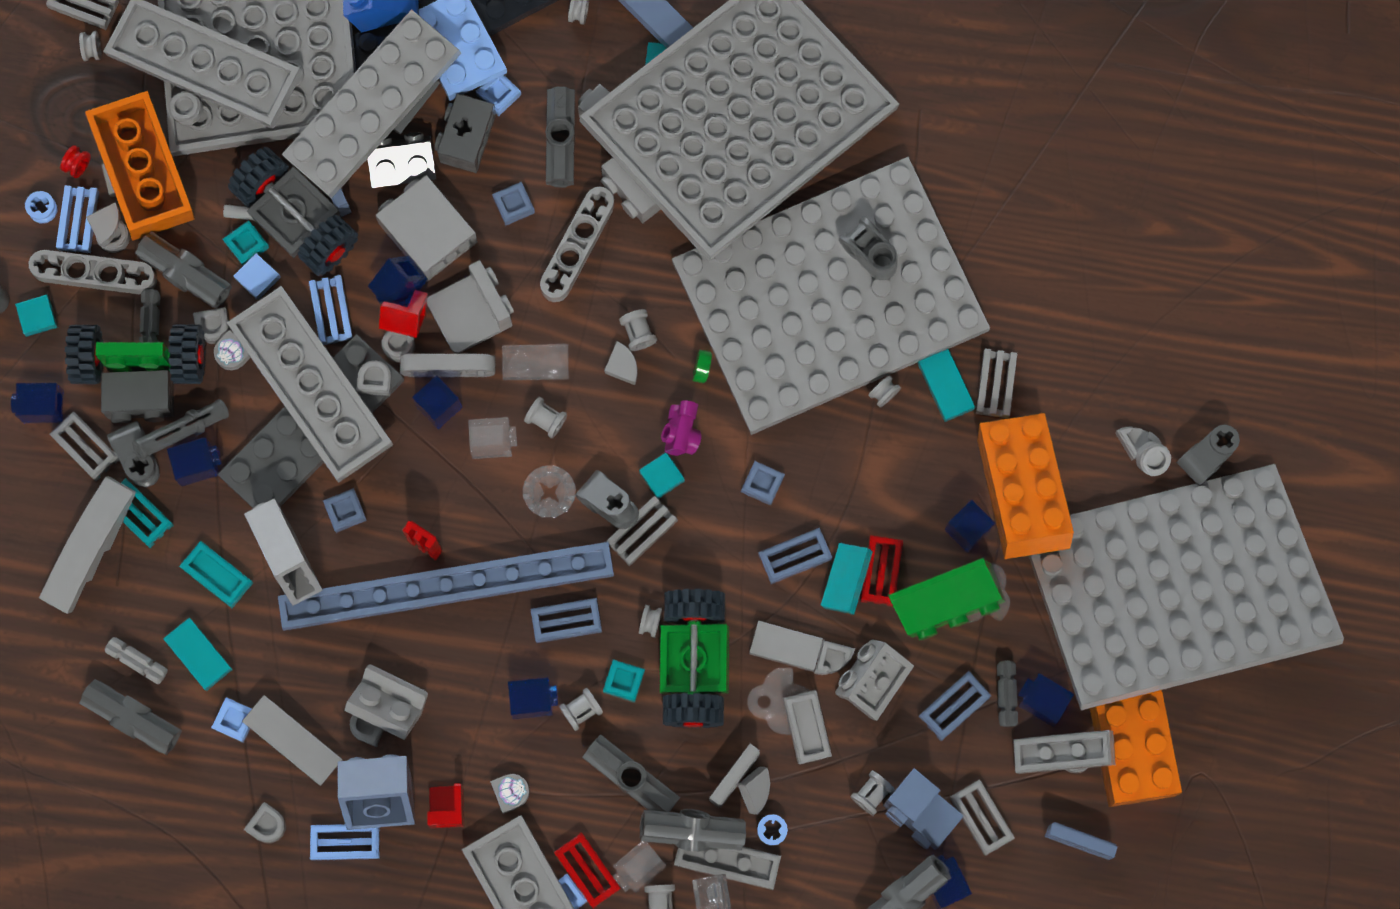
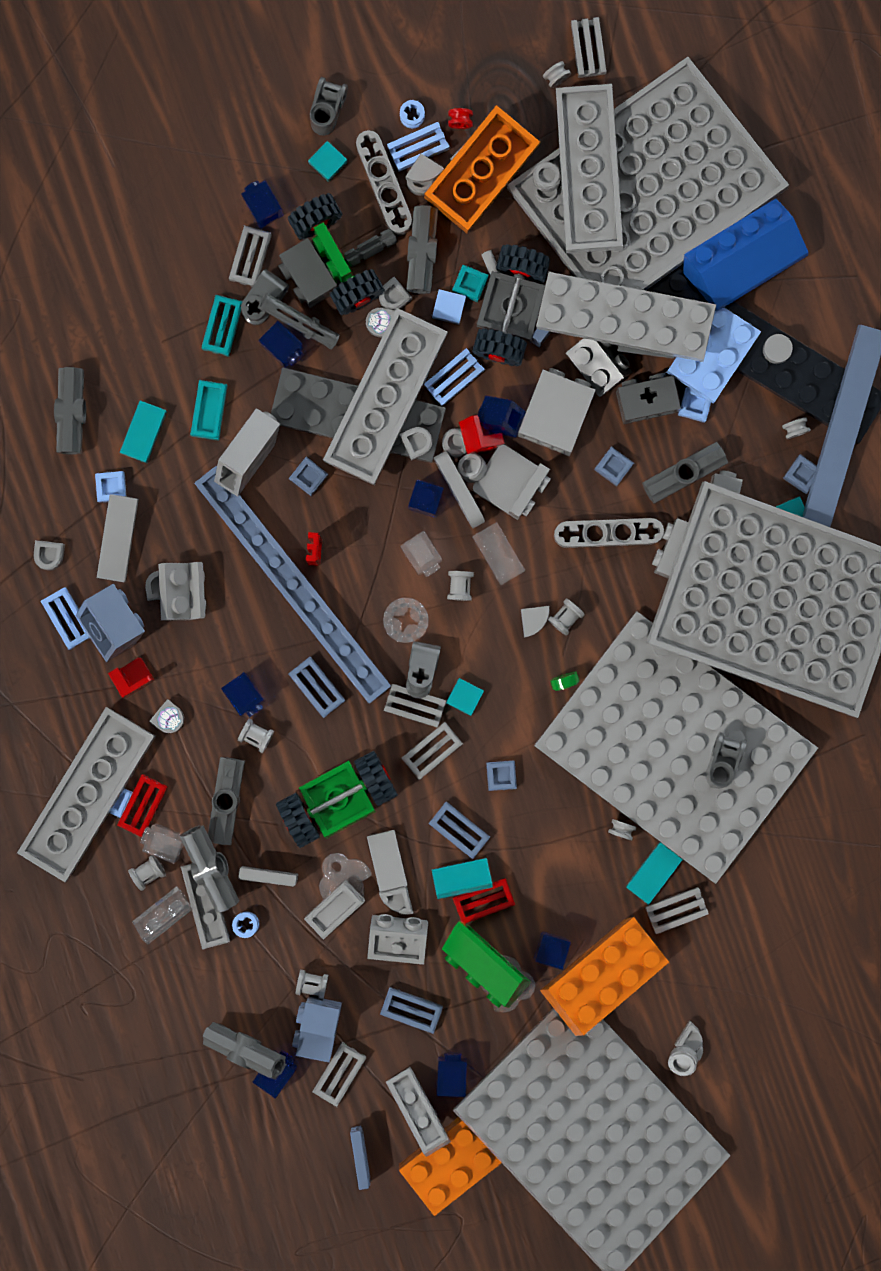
camera: 60 degrees right, 10 degrees up
(87, 544) = (177, 303): light grey slope -> none
(136, 660) = (114, 389): light grey axle -> none
(433, 340) = (472, 467): none -> light grey tile
(623, 681) = (295, 754): teal tile -> none
(626, 30) = (801, 474): none -> sand blue tile
(650, 621) = (349, 750): light grey bush -> none
(678, 433) = (502, 693): magenta plate -> none
(702, 566) = (450, 735): none -> light grey tile
(755, 789) = (268, 896): light grey tile -> none
(1007, 693) = (441, 1044): dark grey axle -> none
(1206, 456) = (705, 1100): dark grey piece -> none

